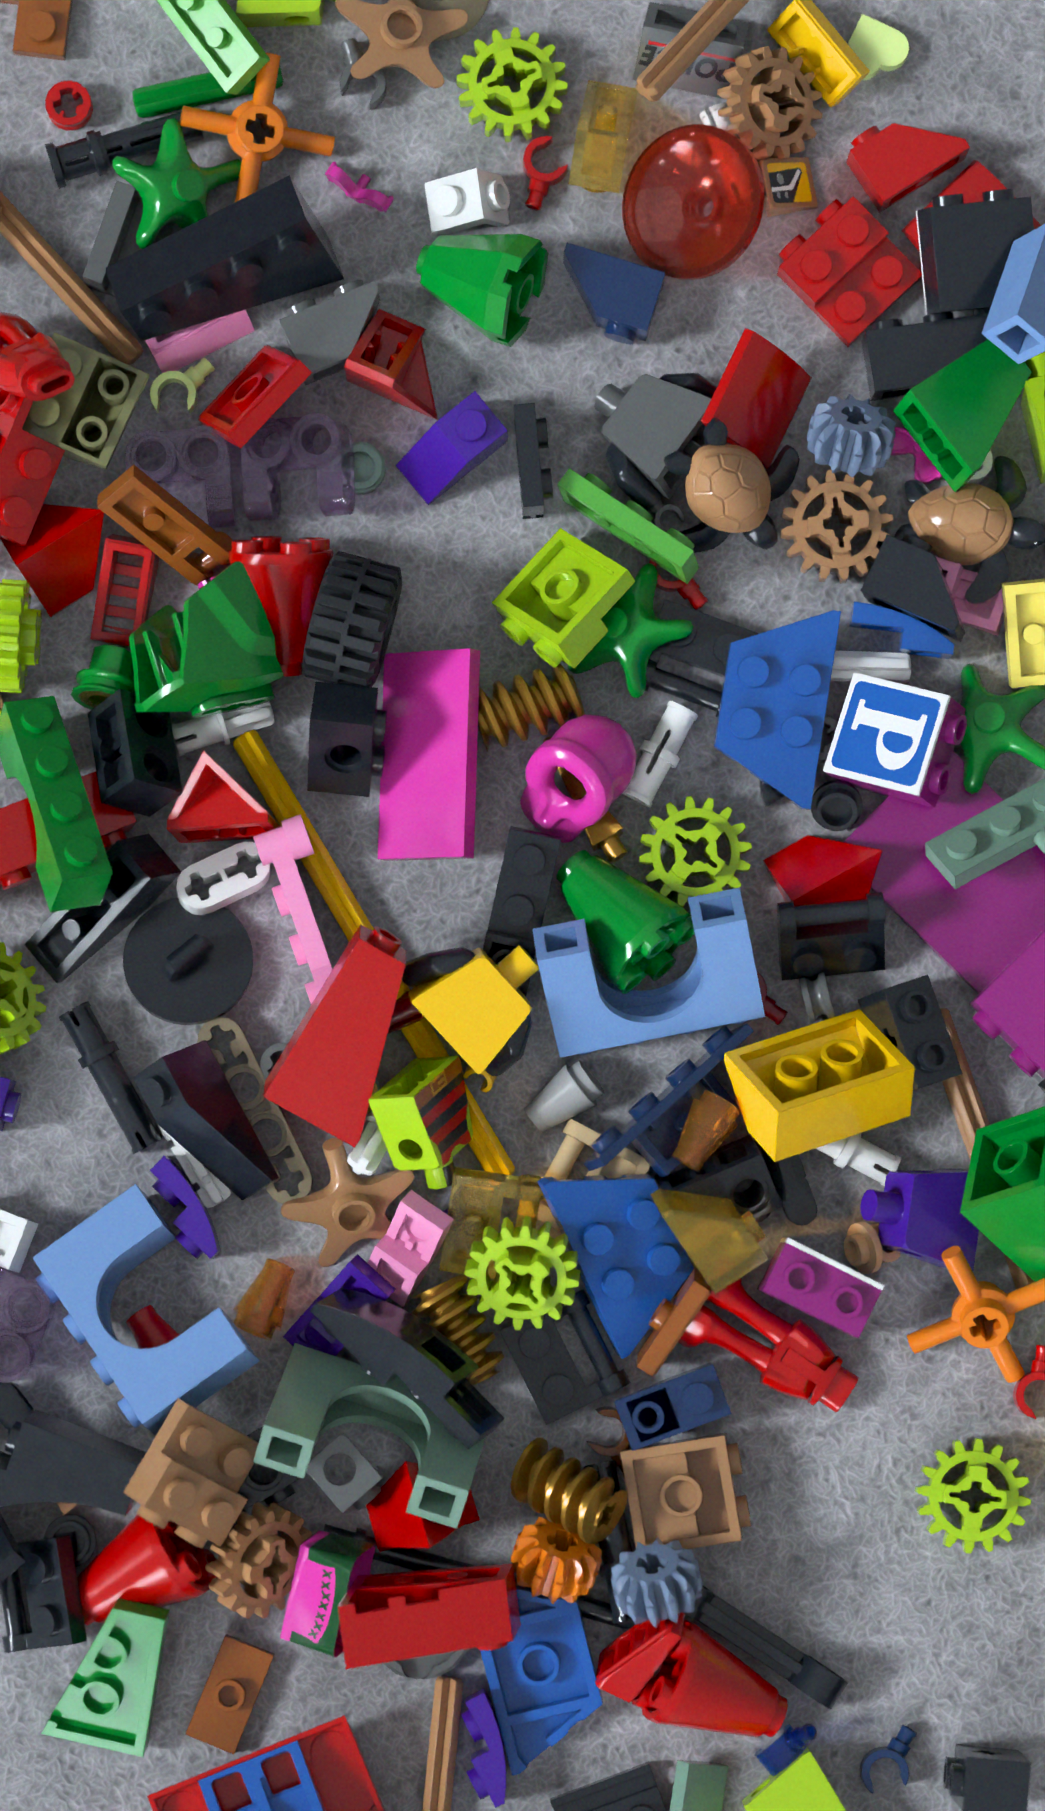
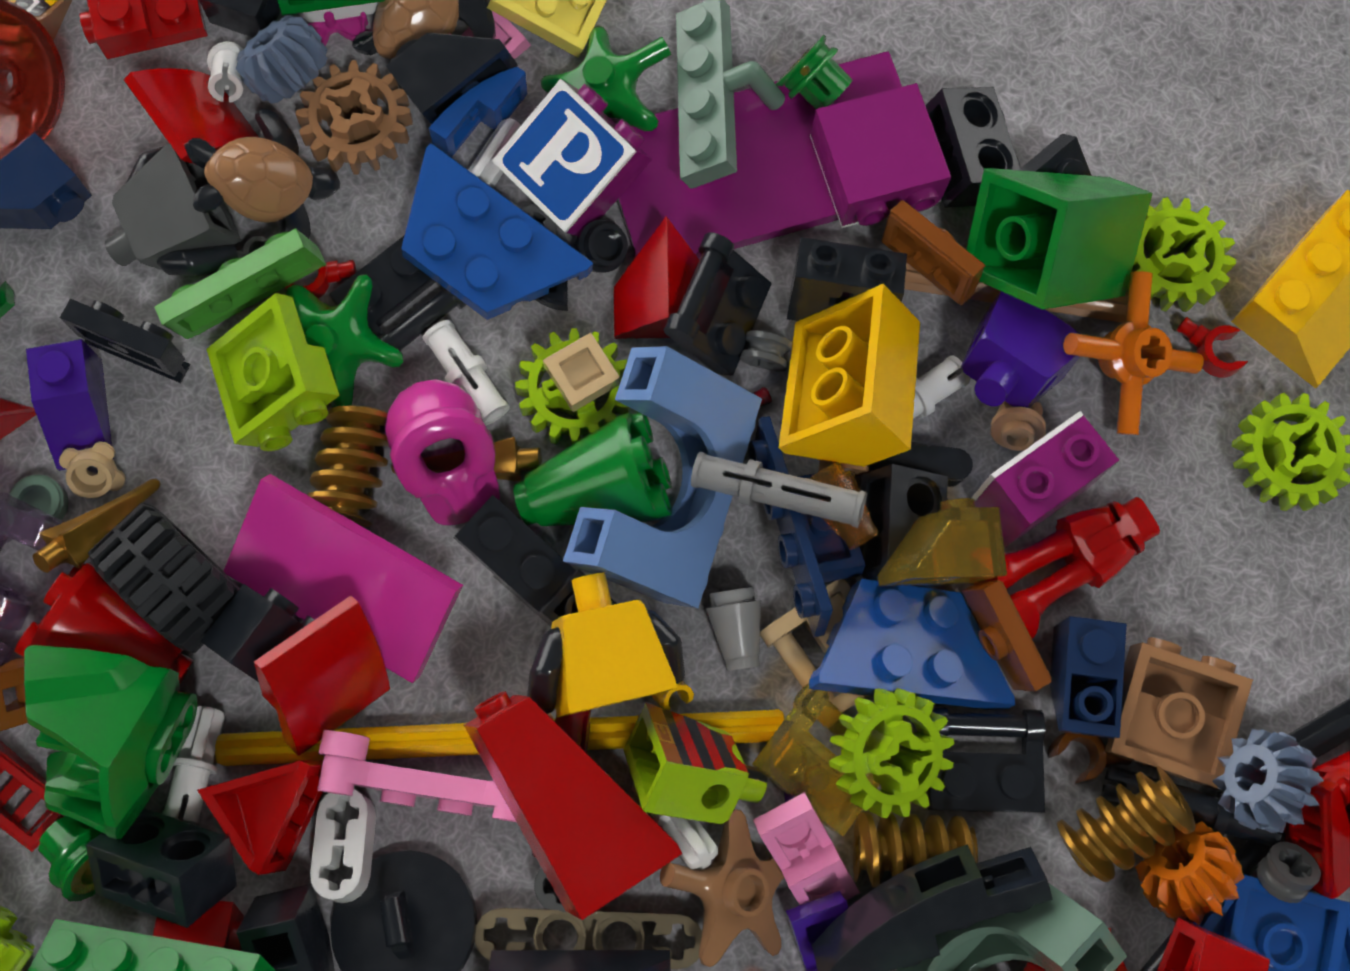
camera: 65 degrees left, 10 degrees down
(342, 790) = (323, 674): none -> red slope
(348, 530) = (75, 538): none -> pearl gold piece
(398, 501) = (87, 483): none -> tan plate
(611, 1641) = (1288, 872): none -> dark grey bush
(672, 1011) = (714, 474): none -> light grey pin
(701, 856) = (581, 372): none -> tan plate
(824, 383) = (224, 76): none -> white pin
(978, 1095) = (932, 252): none -> dark orange plate

